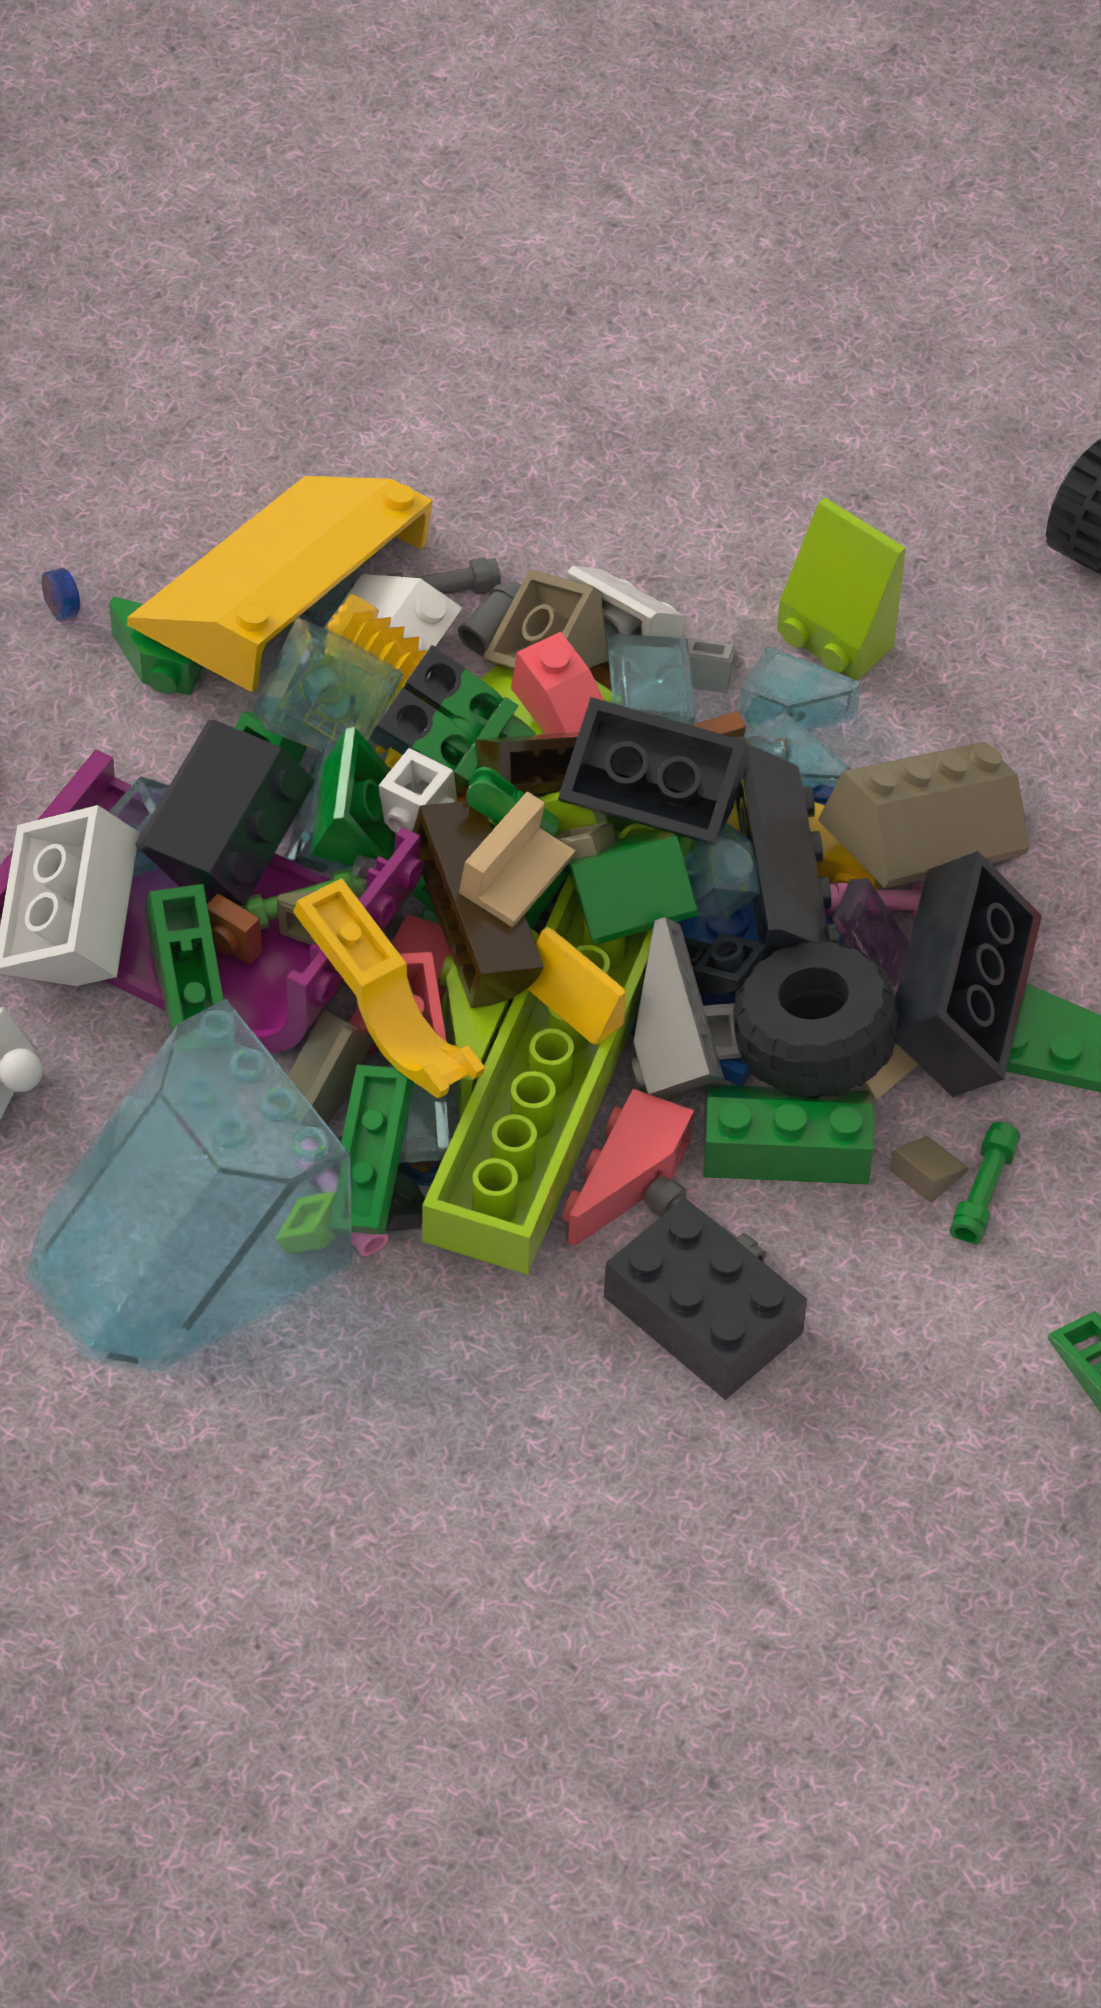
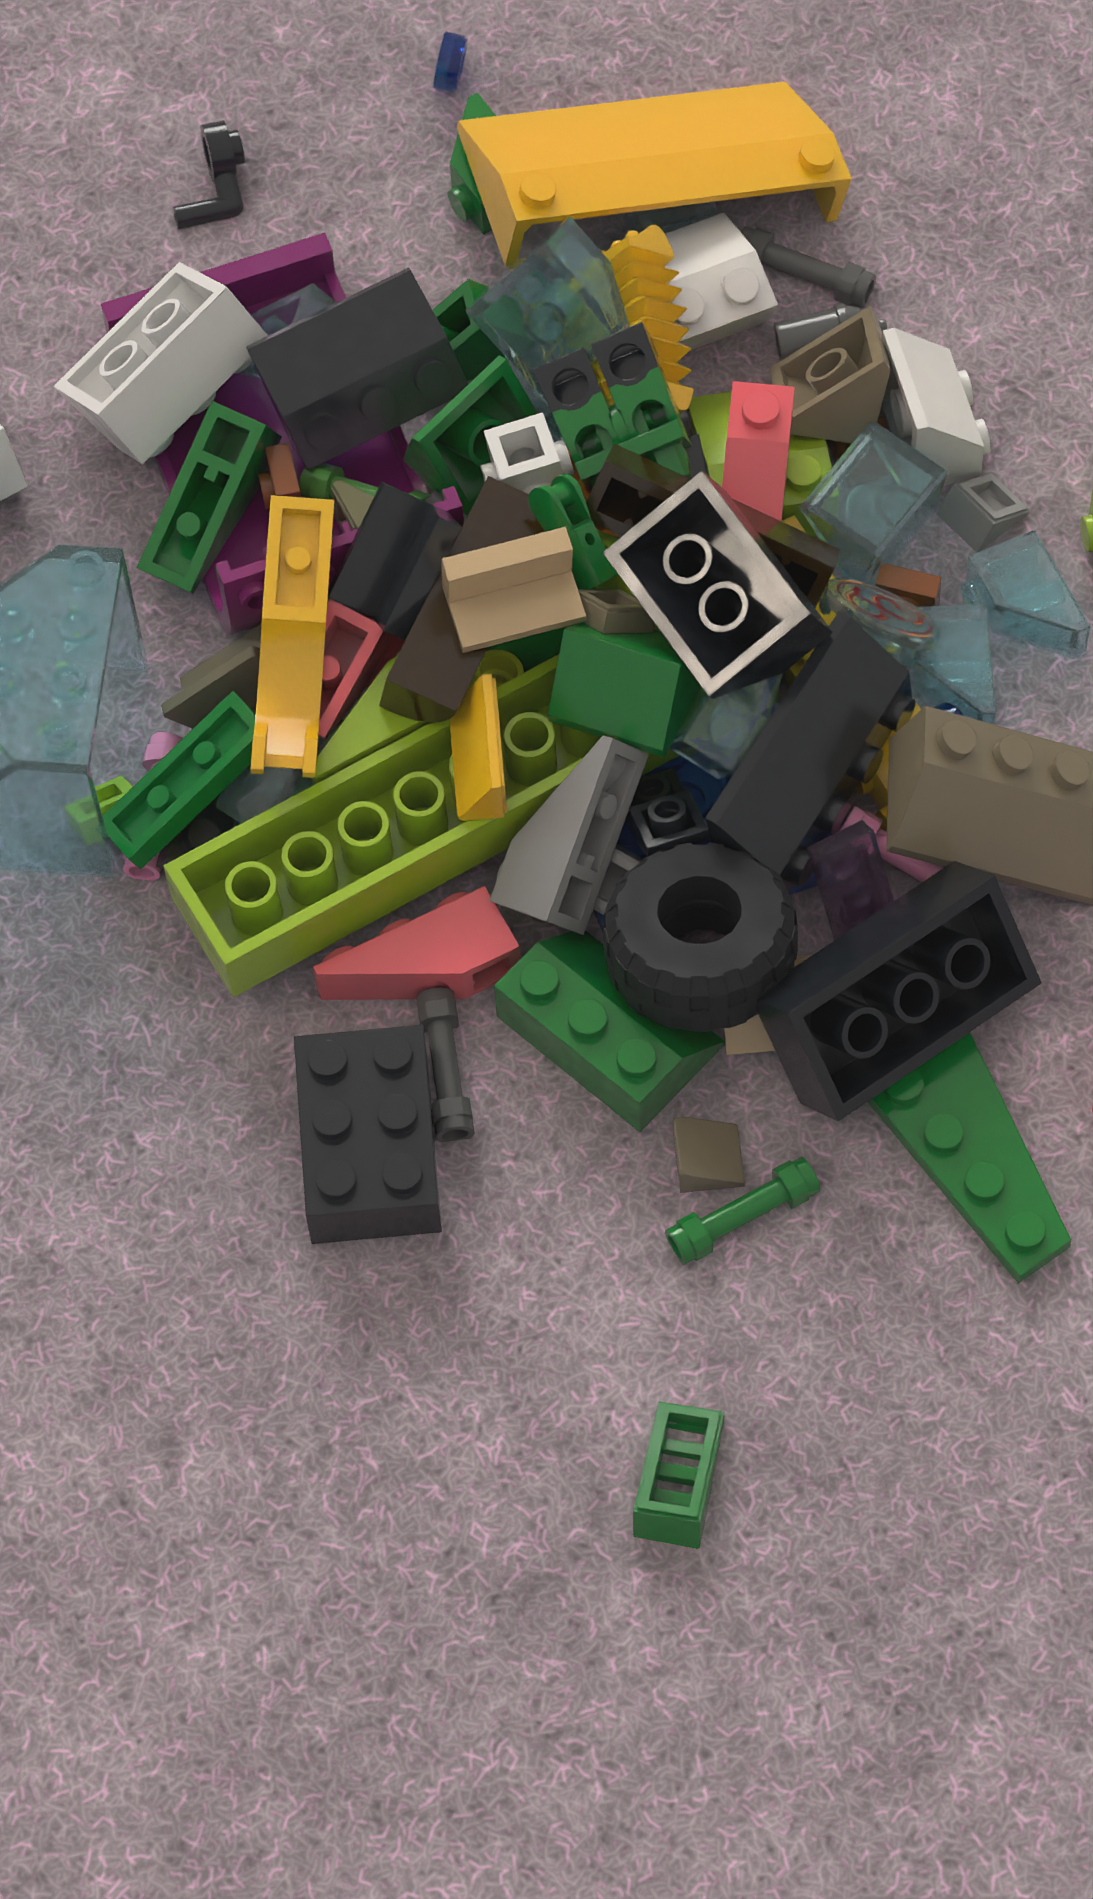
camera: 45 degrees right, 10 degrees up
(413, 894) = (394, 559): none -> black panel

